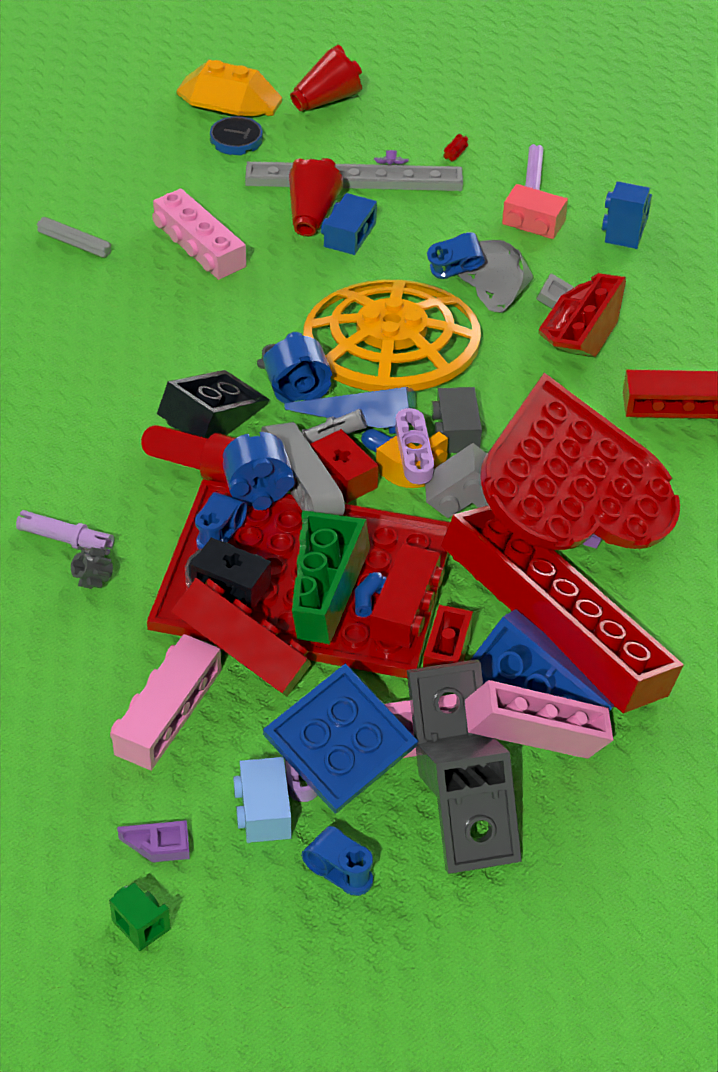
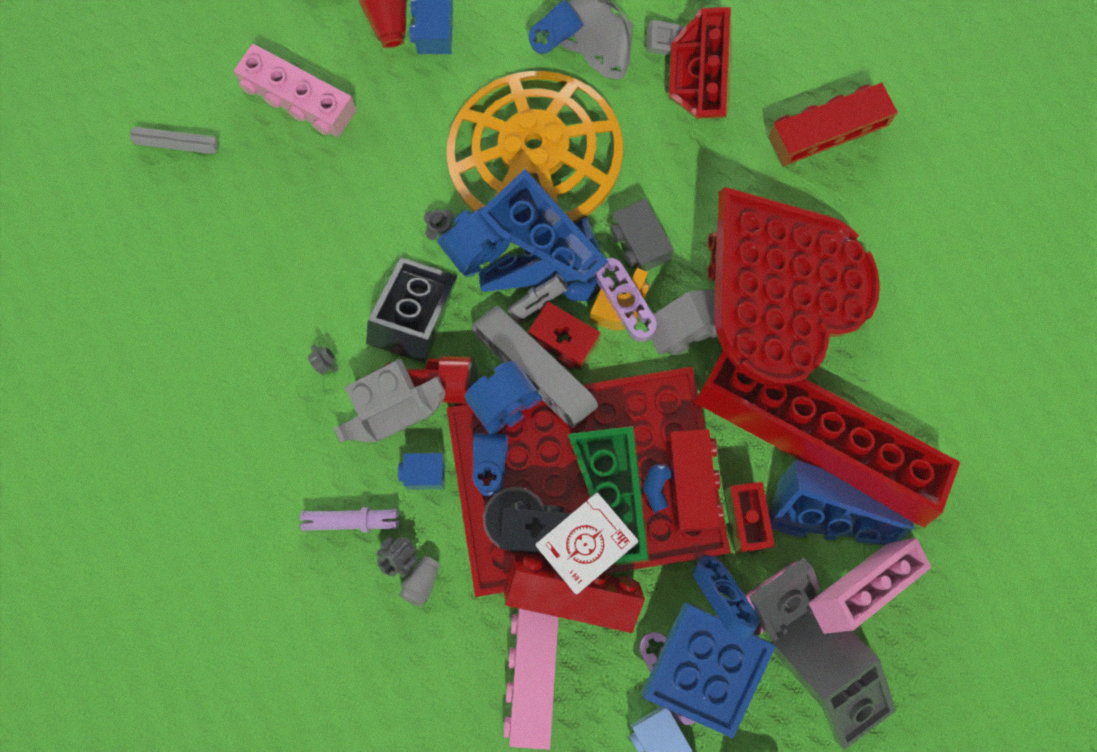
camera: 20 degrees left, 30 degrees up
(100, 597) = (420, 582): none -> light grey cone
(110, 413) = (322, 359): none -> dark grey plate
(151, 454) = (388, 404): none -> light grey plate
(154, 518) = (422, 471): none -> blue brick
(273, 586) = (586, 543): none -> white sticker
(362, 362) = (537, 224): none -> blue wedge
(388, 685) = (736, 613): none -> blue beam

